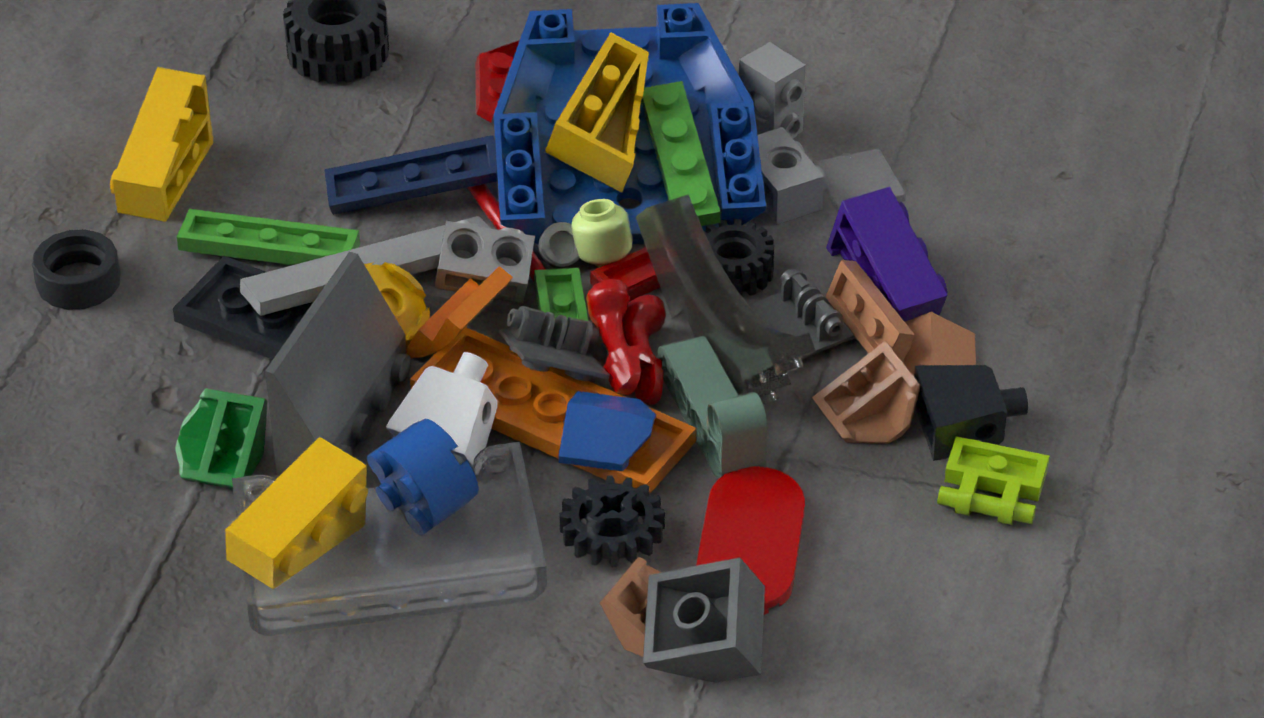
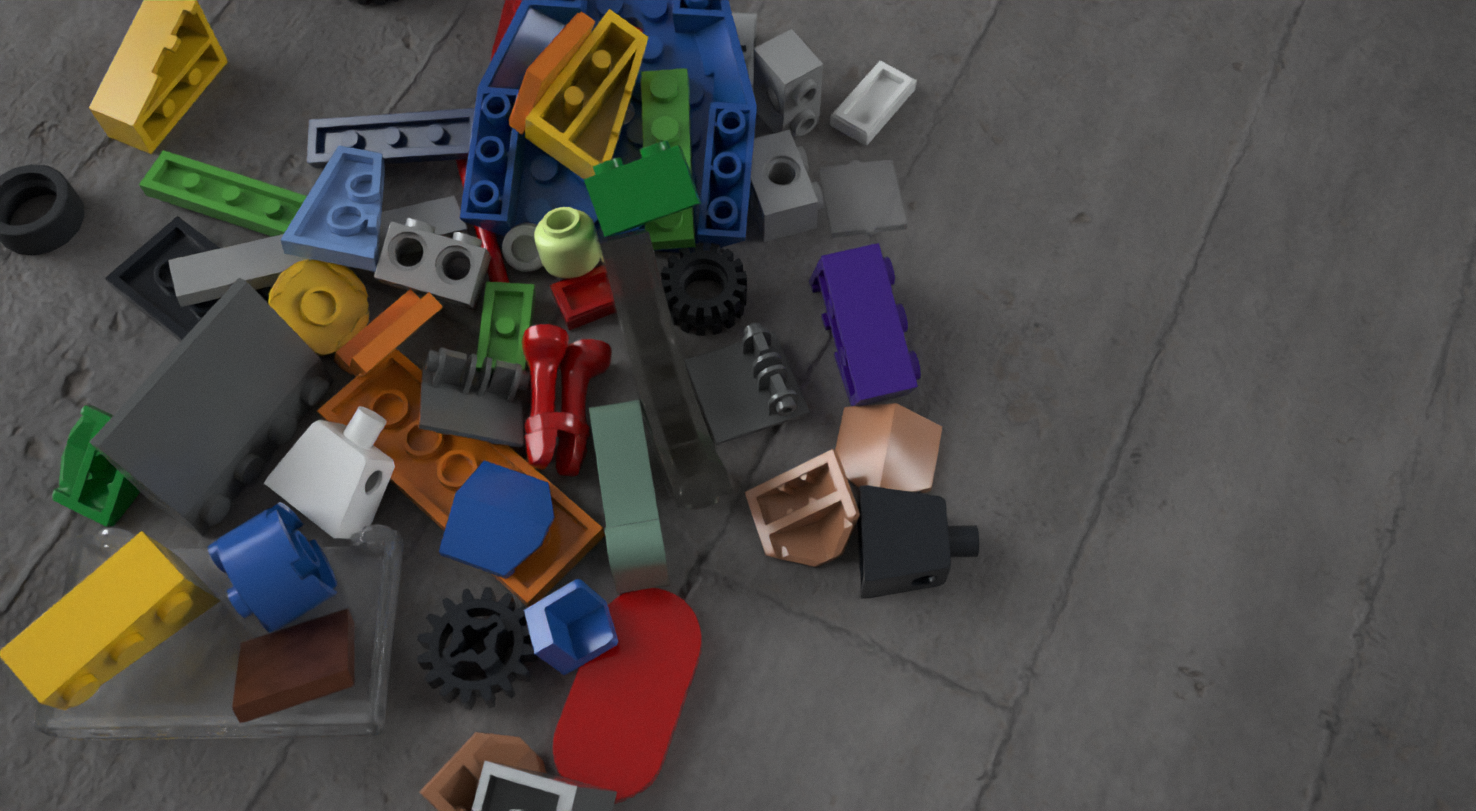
camera: 10 degrees right, 20 degrees up
(390, 228) = (341, 212): none -> medium blue wing
(463, 539) = (294, 666): none -> copper tile
(565, 87) = (548, 66): none -> orange tile
(674, 166) = (641, 189): none -> green brick
(690, 492) = (570, 627): none -> blue panel
(850, 108) = (872, 103): none -> white tile
(867, 310) = (828, 394): nougat plate -> none
(996, 470) = (925, 637): lime plate -> none

